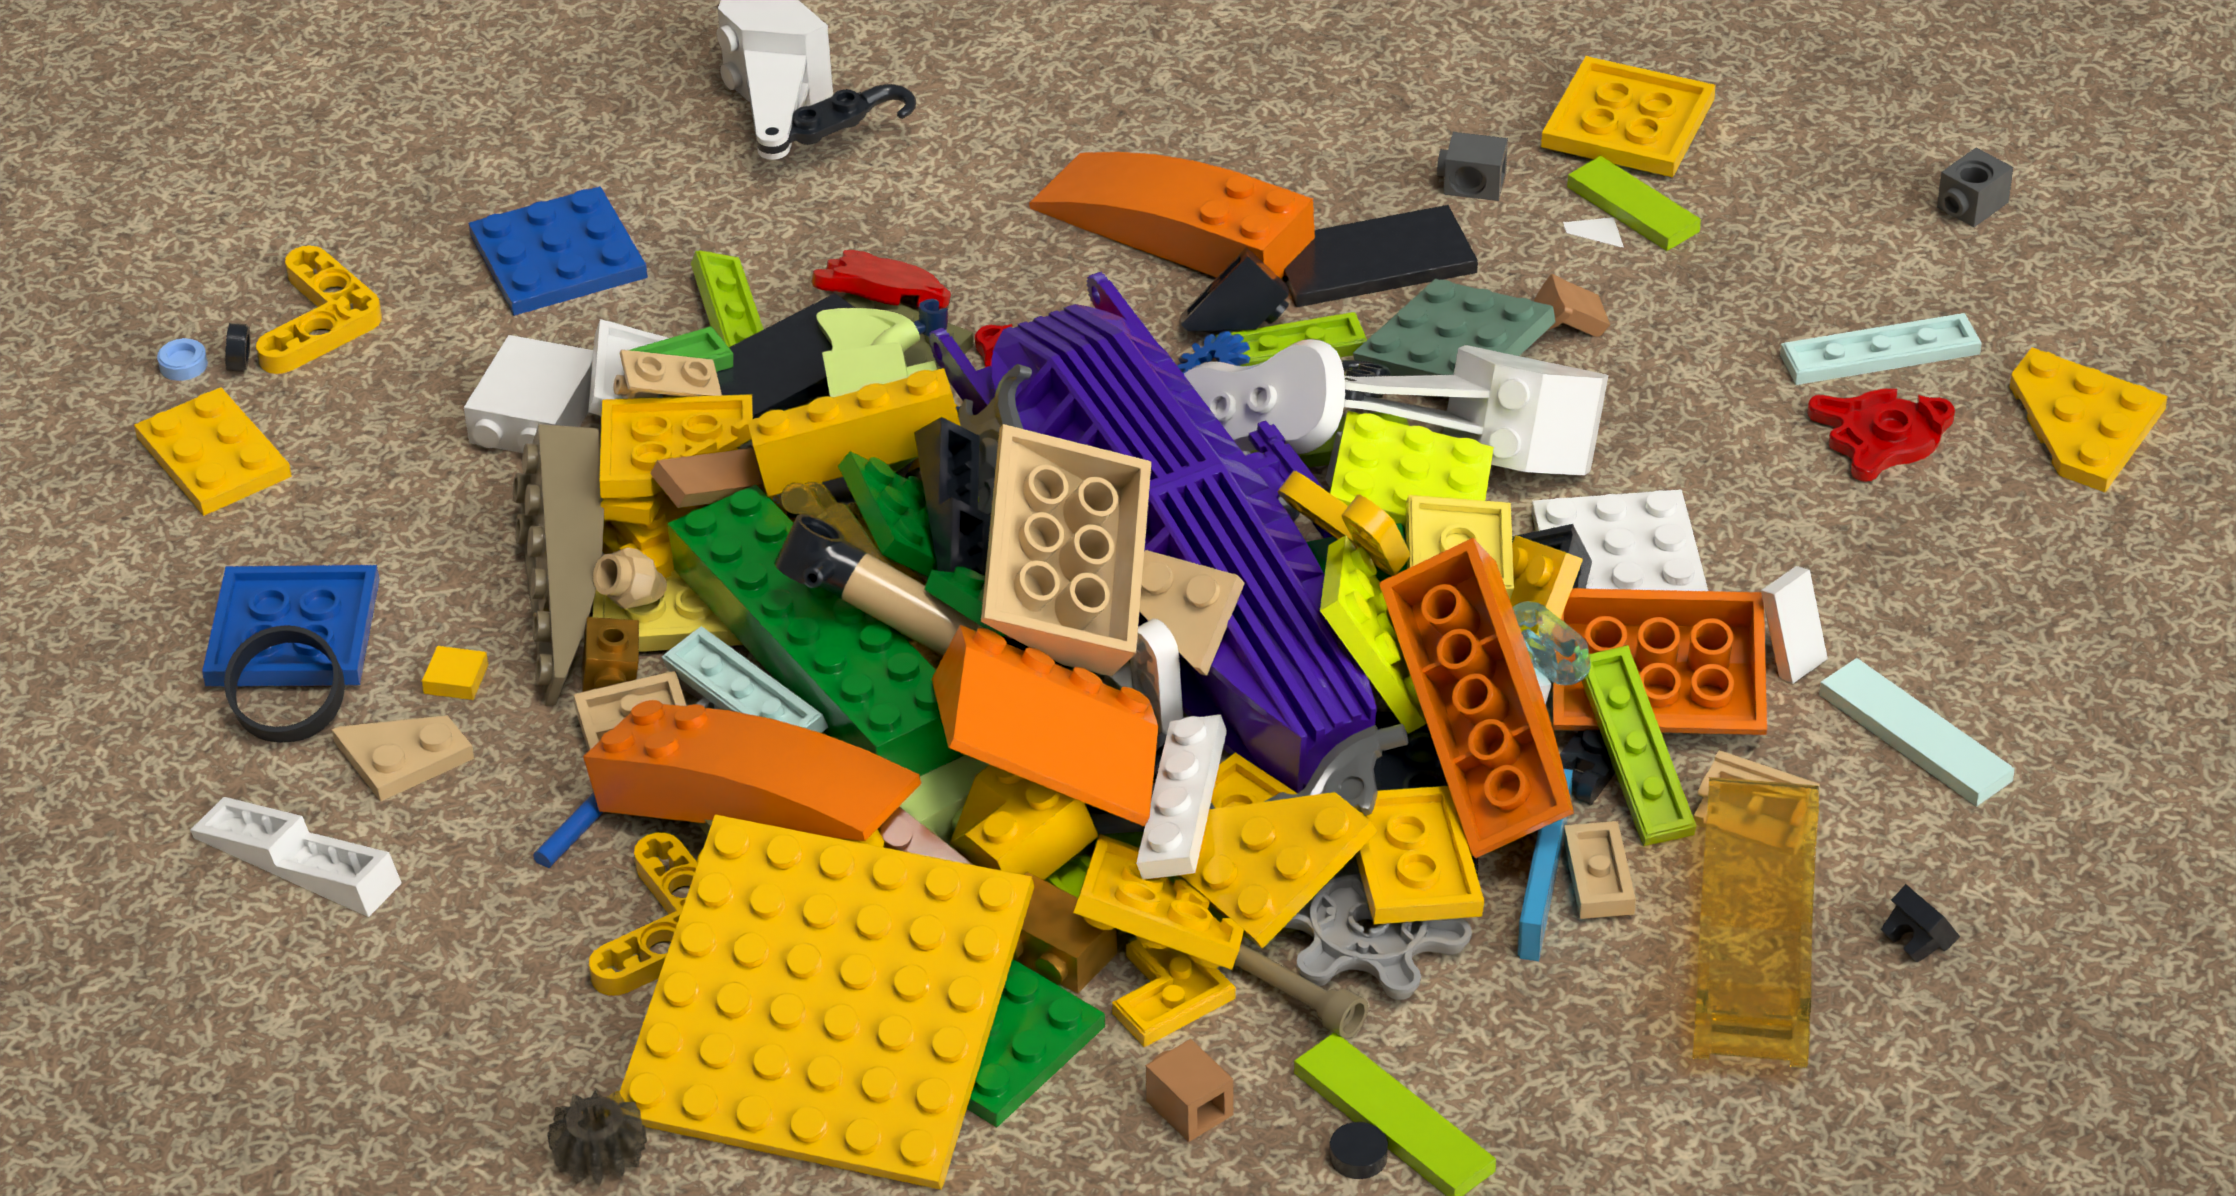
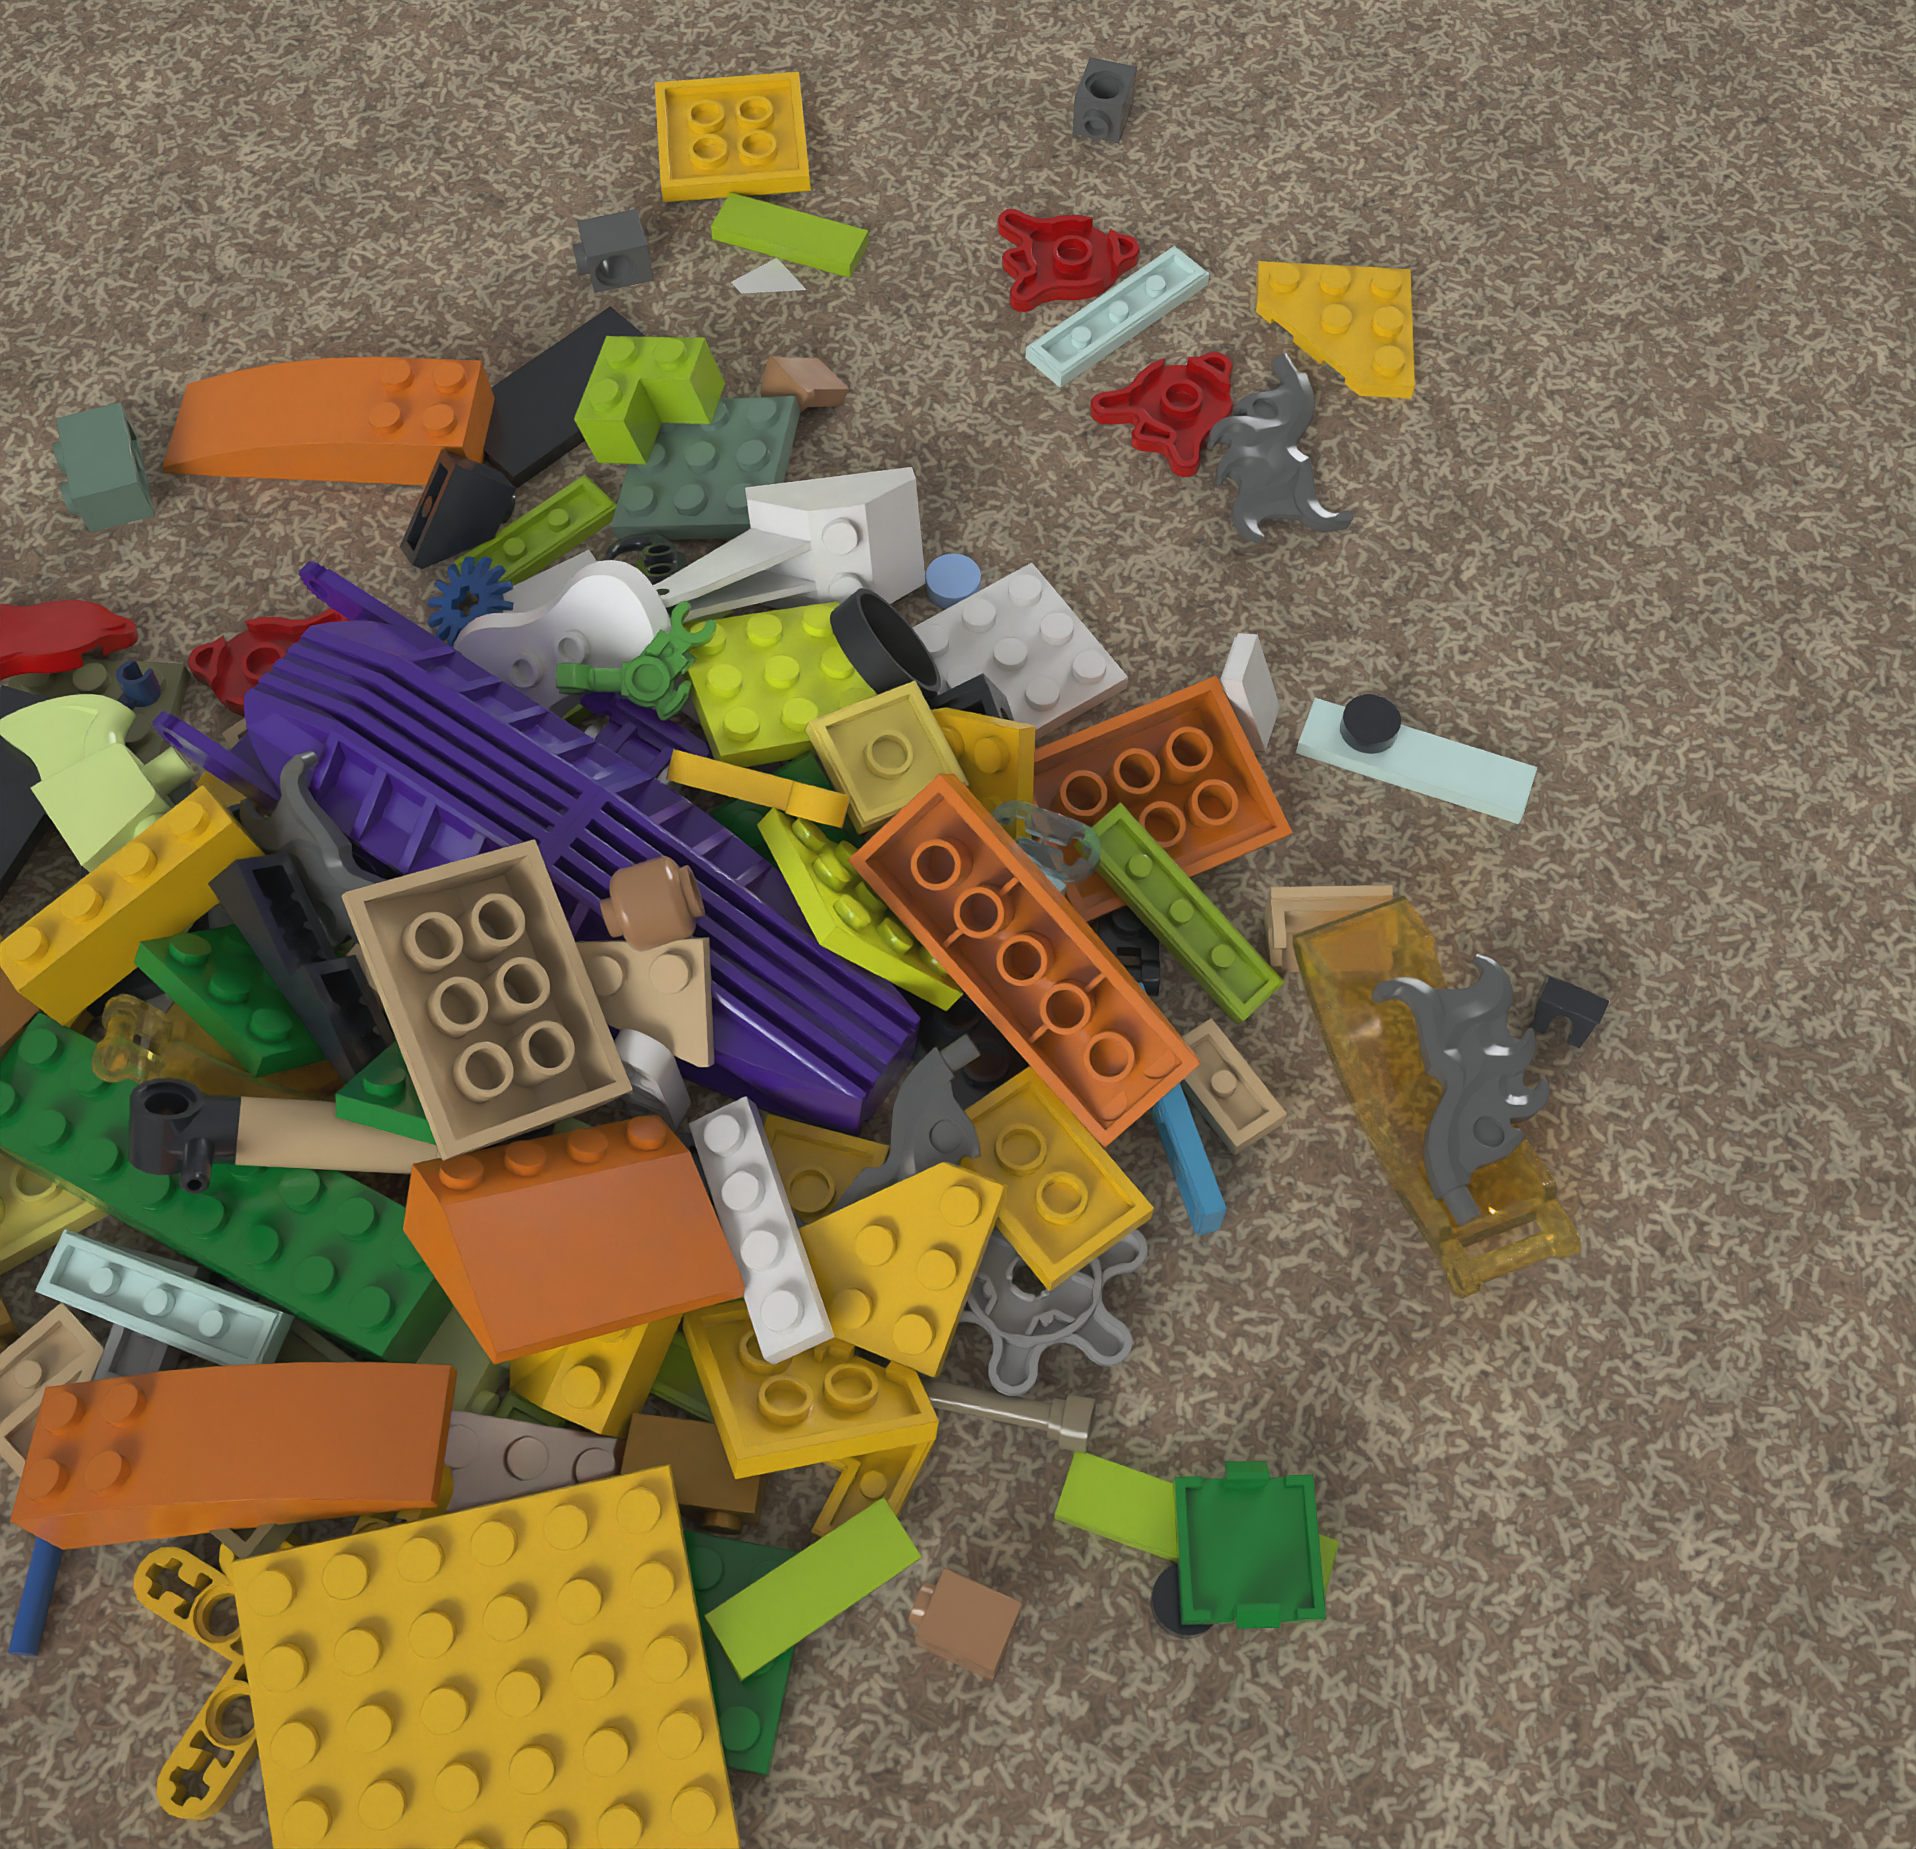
camera: 30 degrees left, 20 degrees up
(984, 185) = (102, 467): none -> sand green brick
(1092, 1019) = (811, 1588): none -> lime tile
(1214, 539) = (652, 903): none -> medium nougat head
(1311, 430) = (649, 677): none -> bright green piece
(1421, 1121) = (1248, 1548): none -> green piece
(1428, 259) = (640, 387): none -> lime brick
(1522, 475) = (883, 644): none -> black tyre
(1608, 478) = (952, 579): none -> light blue tile
(1799, 920) = (1480, 1075): none -> dark grey piece
(1859, 292) = (1061, 258): none -> red tile
(1886, 685) = (1370, 723): none -> black tile
(1936, 487) = (1265, 460): none -> dark grey piece

